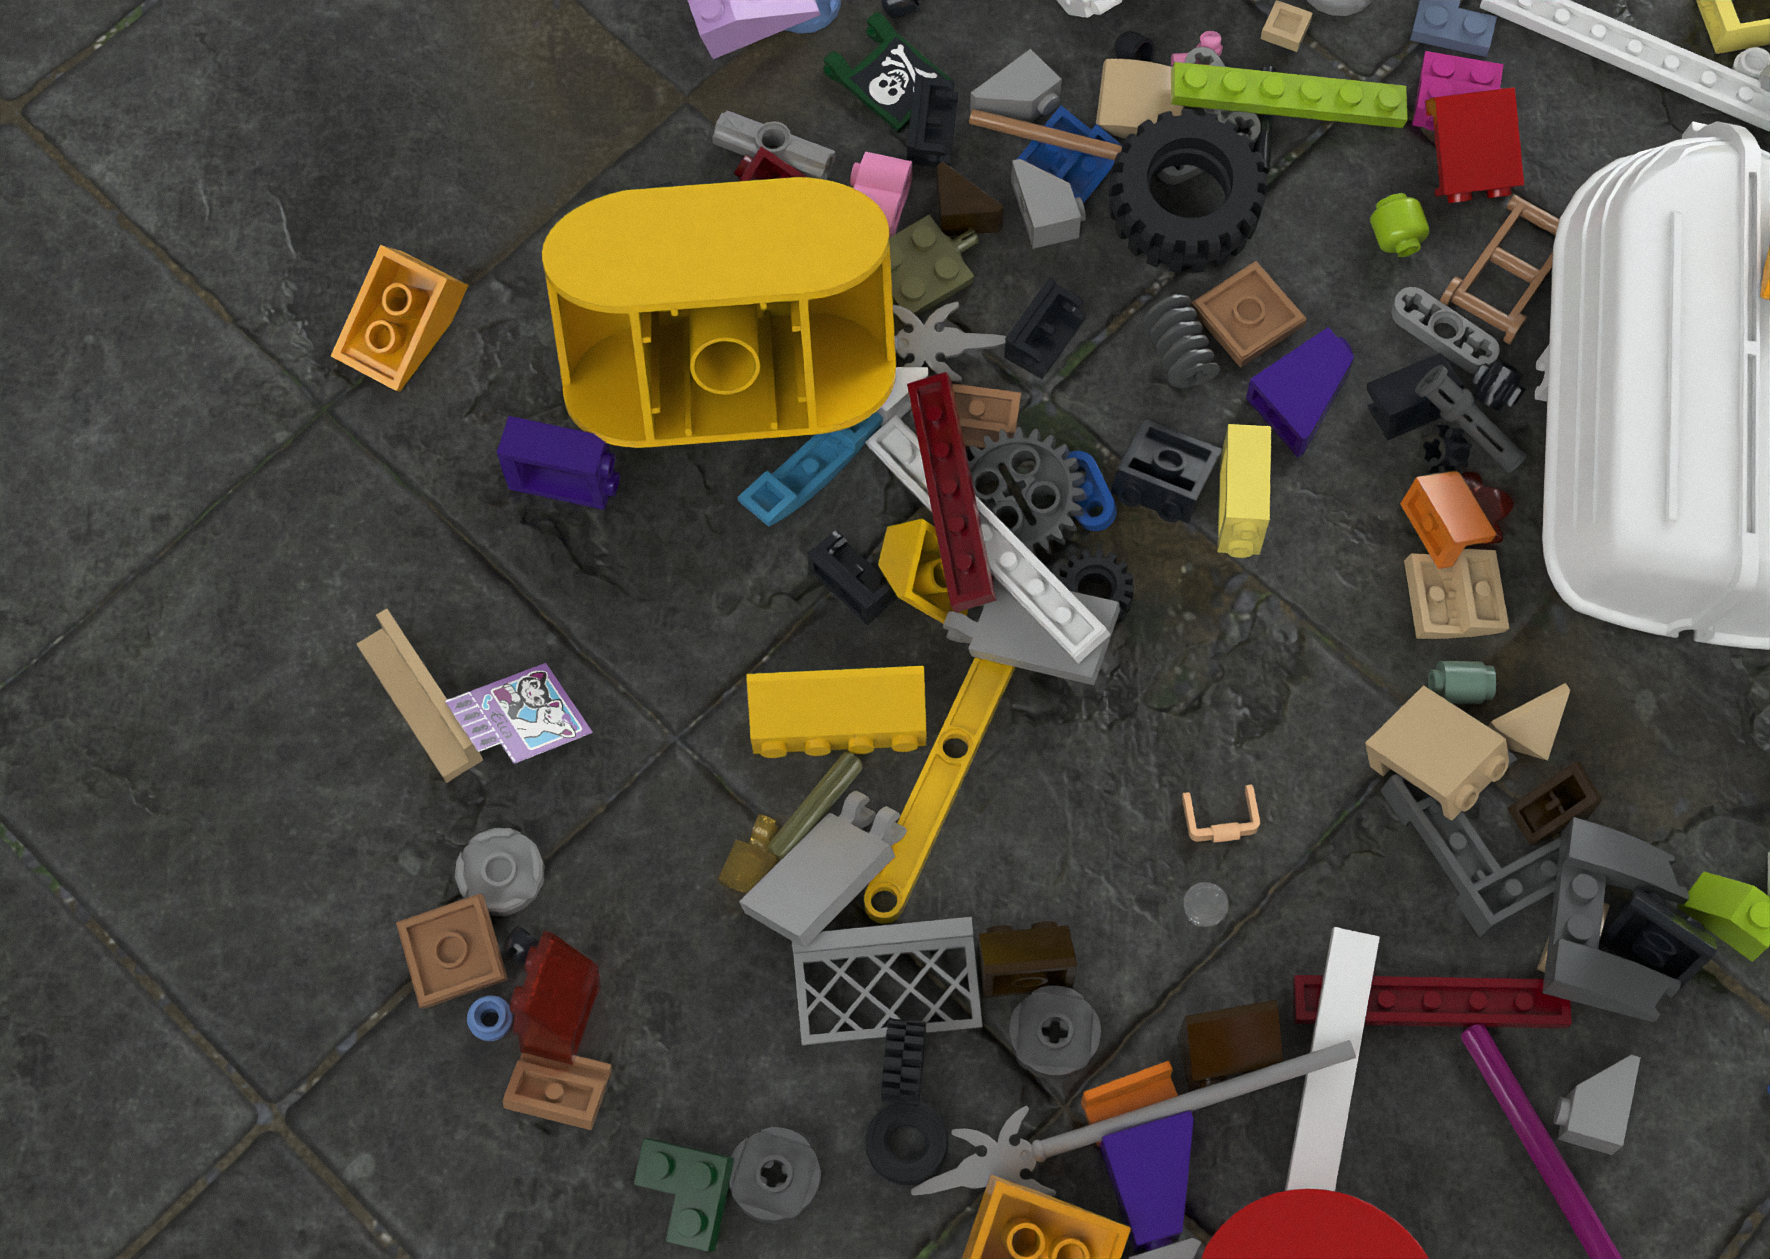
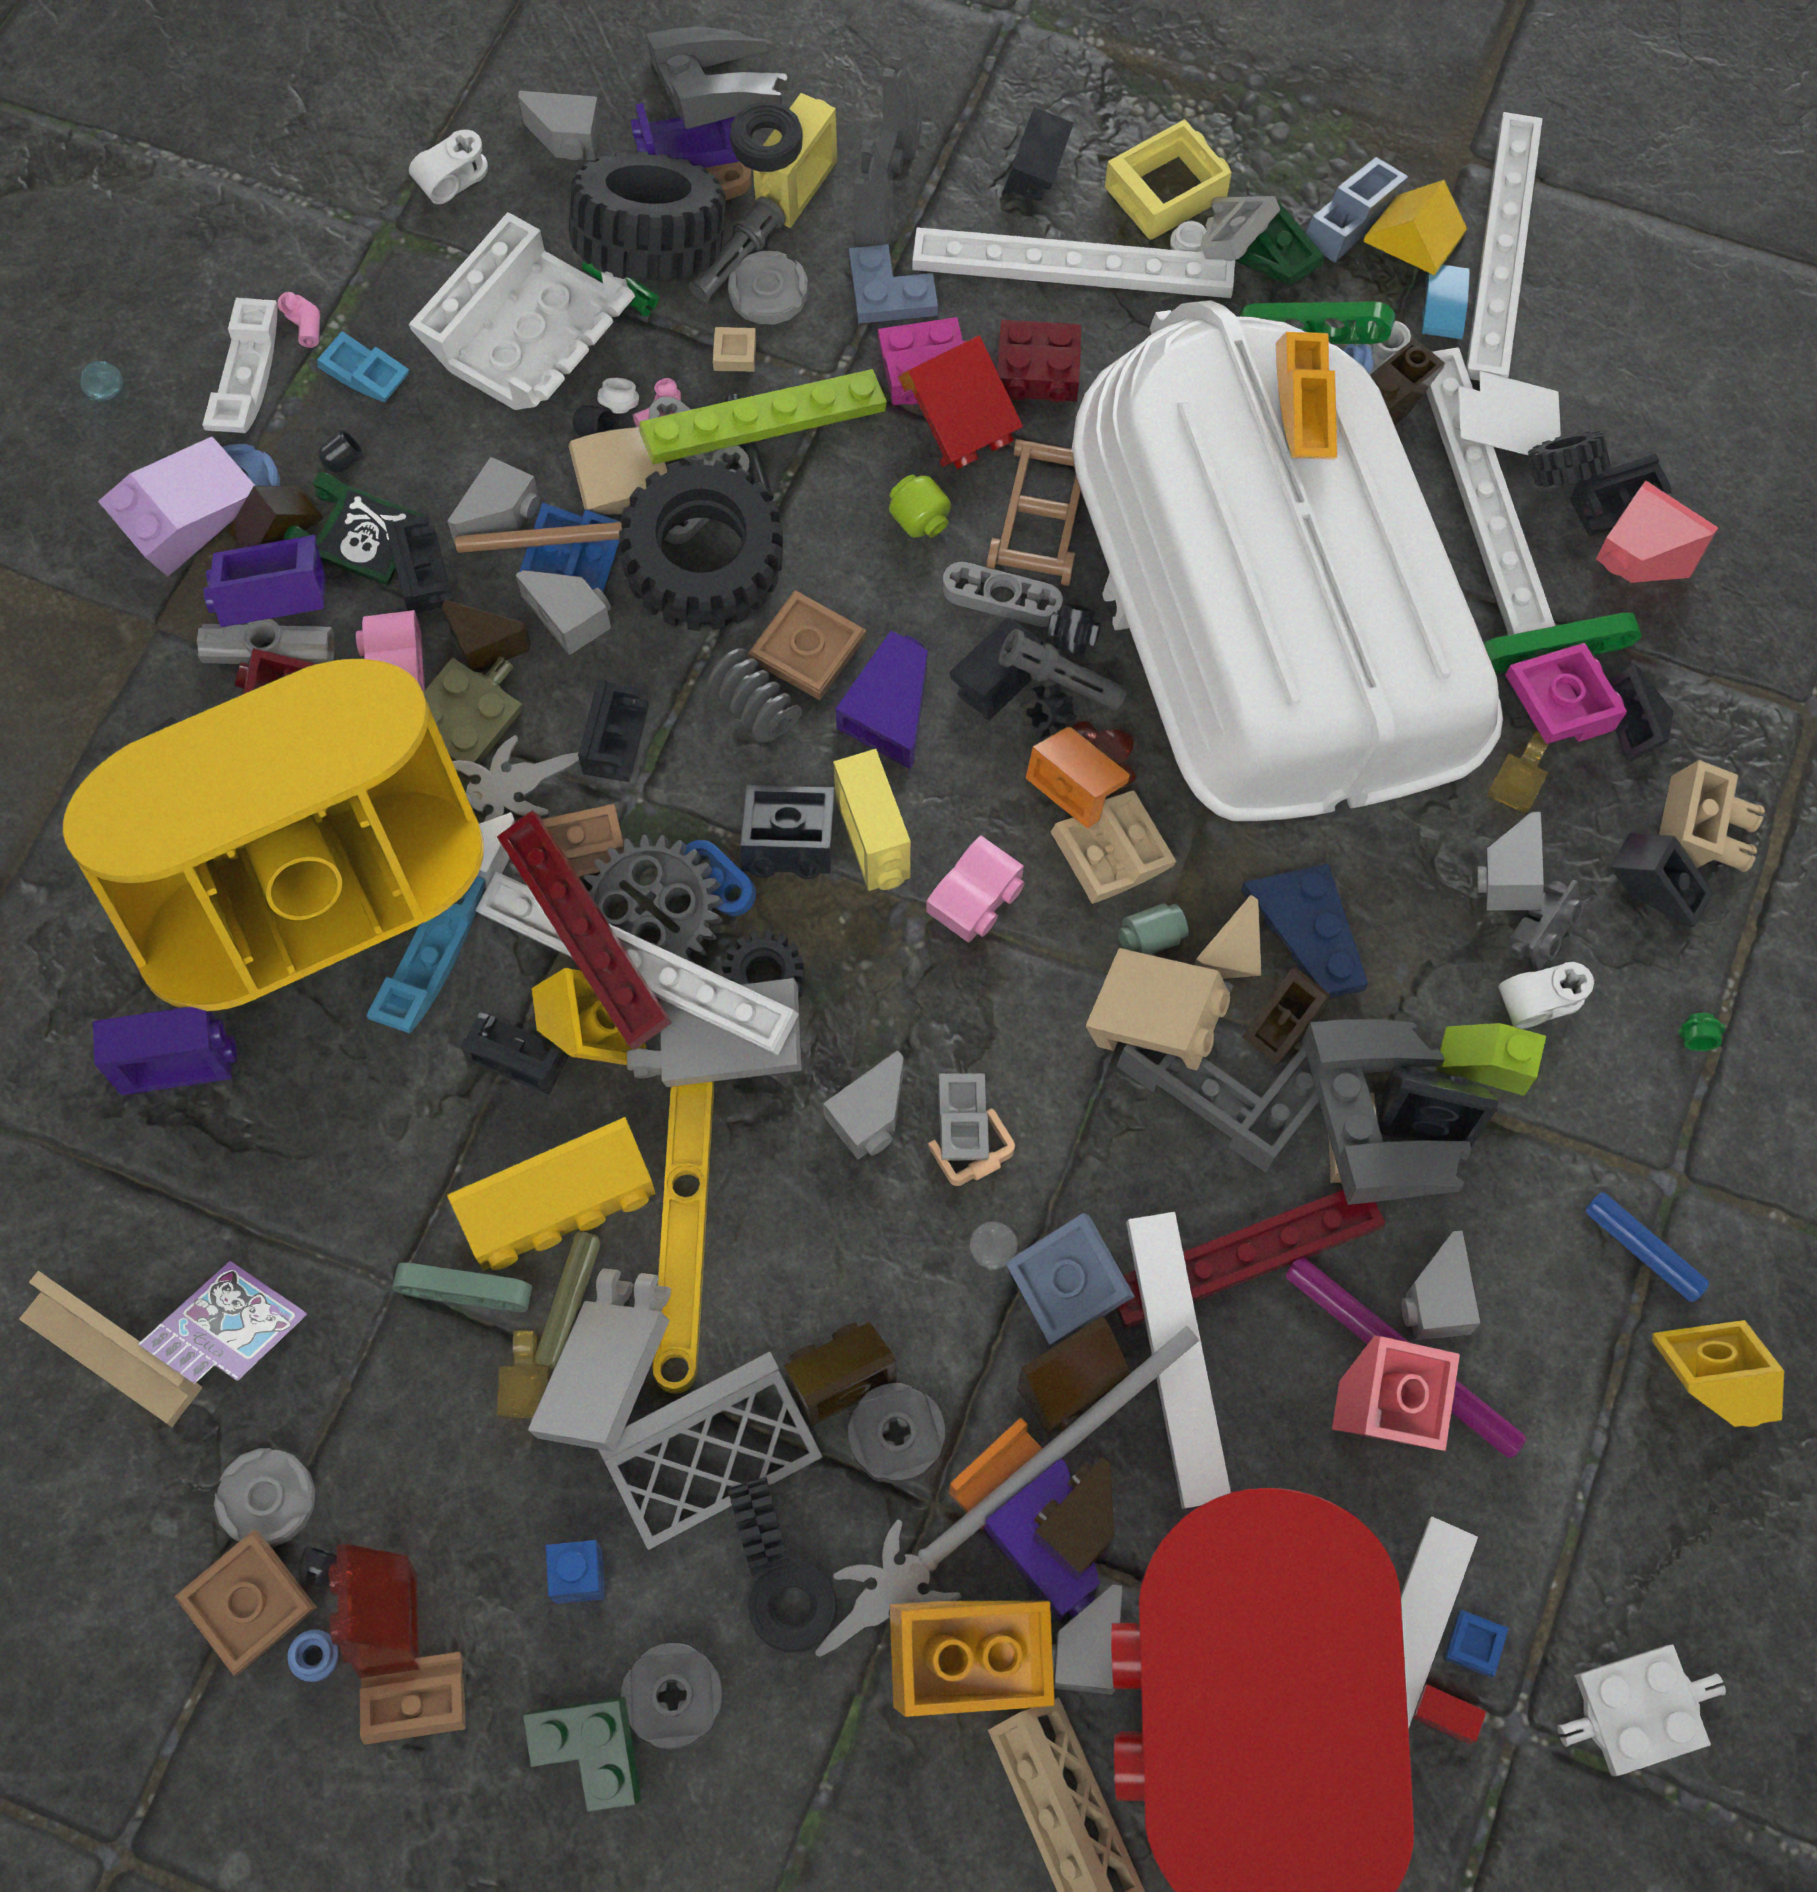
camera: 25 degrees left, 0 degrees up
(730, 760) = (462, 1287): none -> sand green beam
(733, 1037) = (575, 1572): none -> blue brick
(794, 92) = (265, 581): none -> dark purple window
(817, 35) = (269, 514): none -> dark brown slope
(1141, 741) = (868, 1108): none -> light grey slope
(1165, 32) = (618, 395): none -> white plate
(1184, 1173) = (1082, 1523): none -> dark brown slope
(1223, 781) = (963, 1117): none -> light grey slope
(1261, 958) = (1069, 1279): none -> sand blue plate
(1314, 585) = (975, 889): none -> bright pink brick
(1521, 1178) = (1398, 1393): none -> coral slope
(1565, 129) = (1040, 360): none -> dark red plate
(1614, 734) = (1313, 926): none -> dark blue wing

